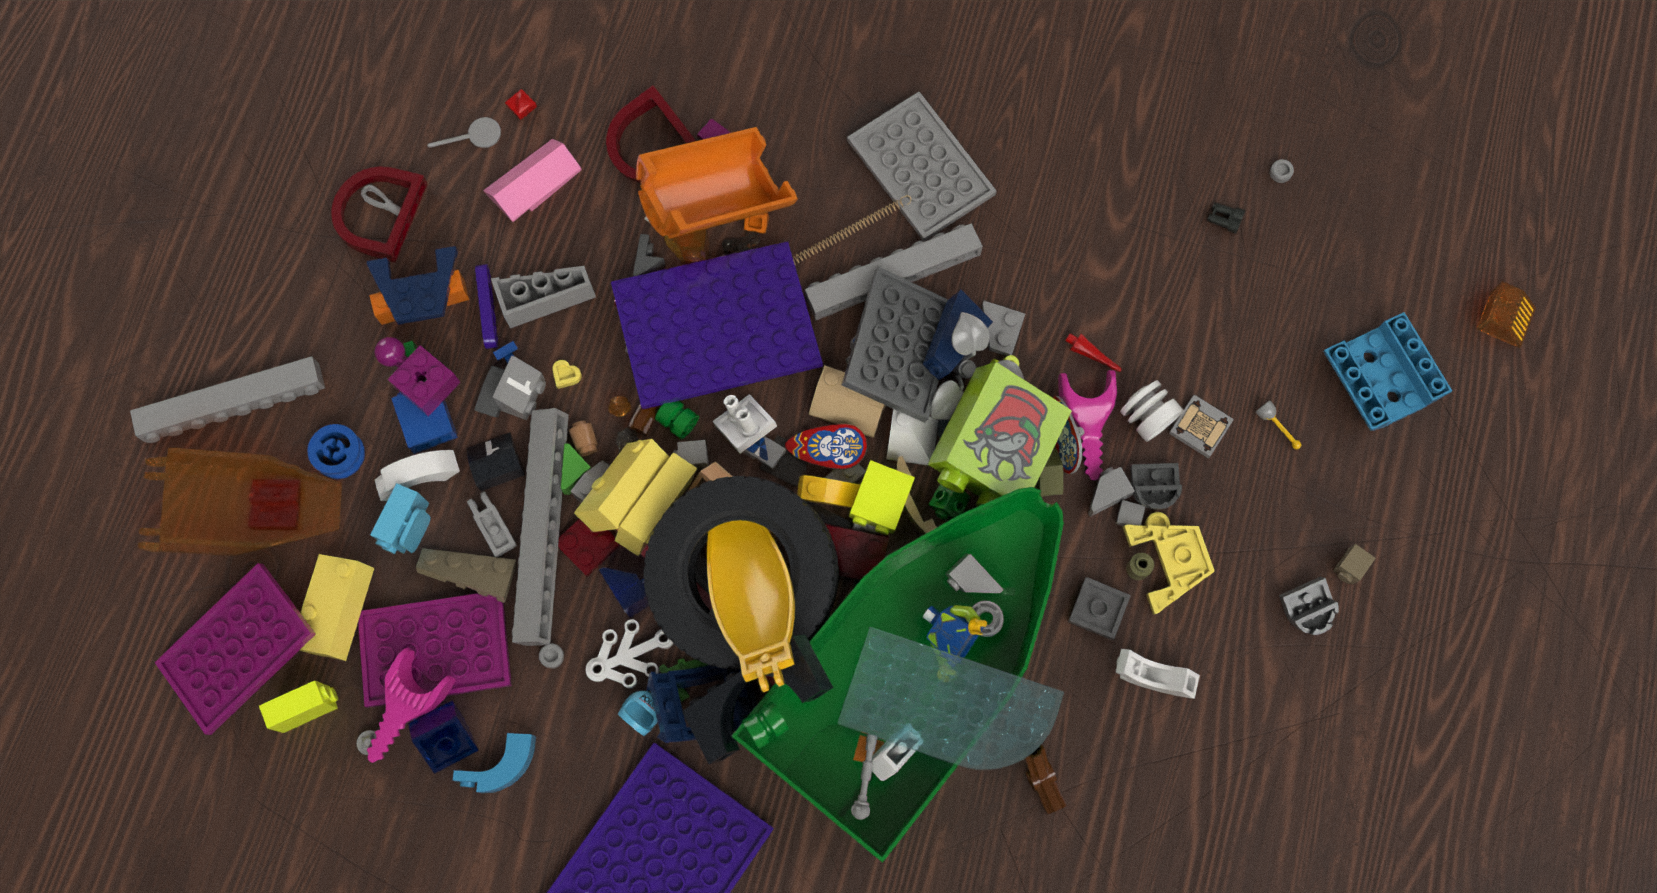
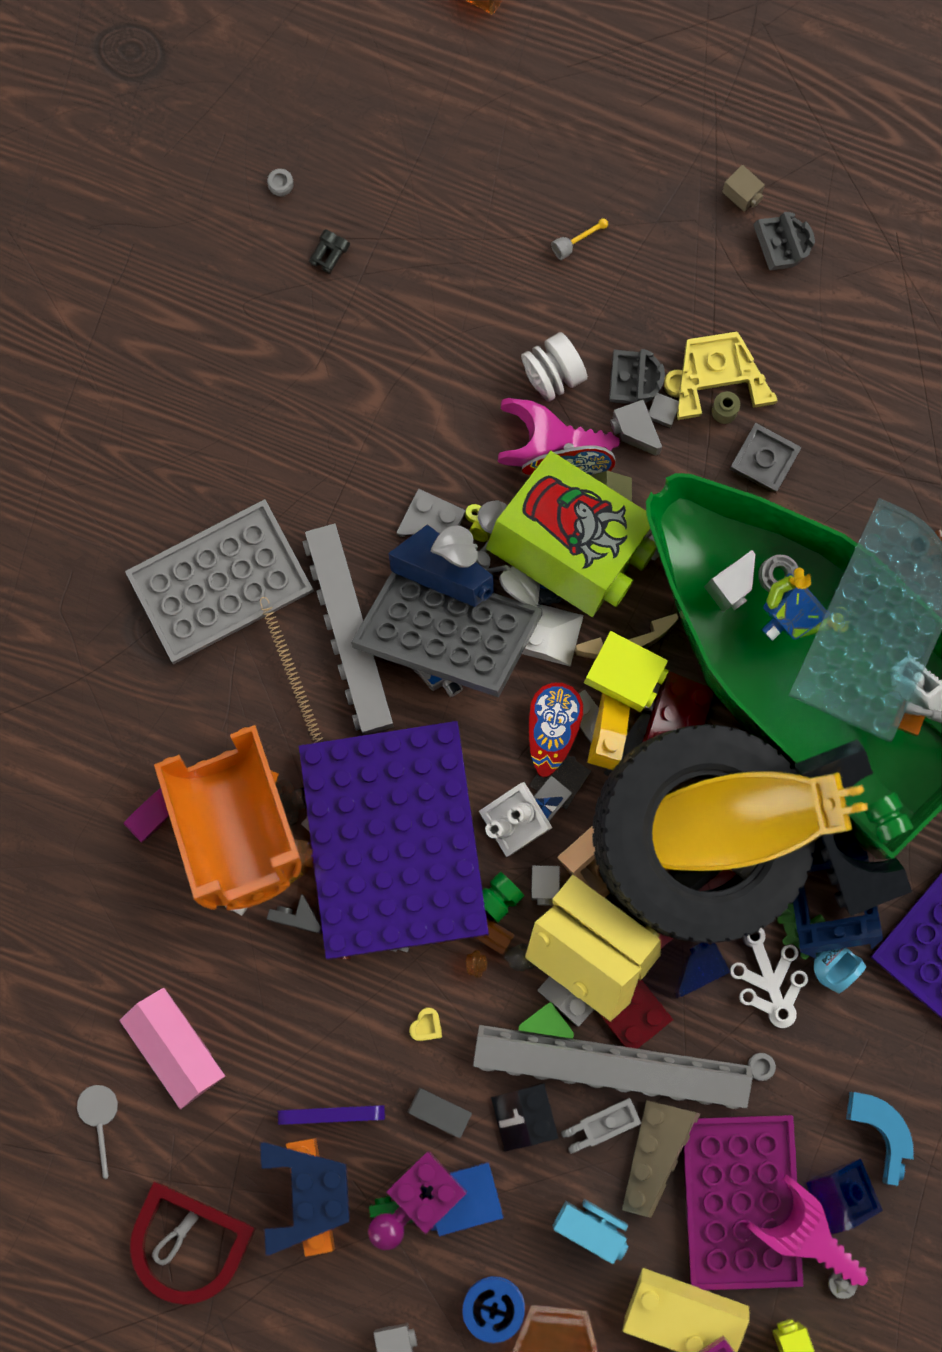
camera: 80 degrees left, 5 degrees up
(415, 470) = (534, 1212): white arch -> none
(506, 351) = (393, 1094): blue tile -> none
(519, 389) = (444, 1078): light grey slope -> none
(521, 104) = (67, 1056): red tile -> none
(541, 293) = (326, 1046): light grey wedge -> none
(583, 438) = (510, 1009): medium nougat brick -> none
(631, 111) = (104, 927): dark red window -> none
(844, 406) = (501, 716): tan slope -> none
(948, 503) = (635, 603): green brick -> none
(1086, 348) = (464, 430): red piece -> none
(1156, 676) = (846, 407): white arch -> none
(1201, 426) = (572, 316): tile -> none
(1398, 367) = (529, 100): dark azure slope -> none

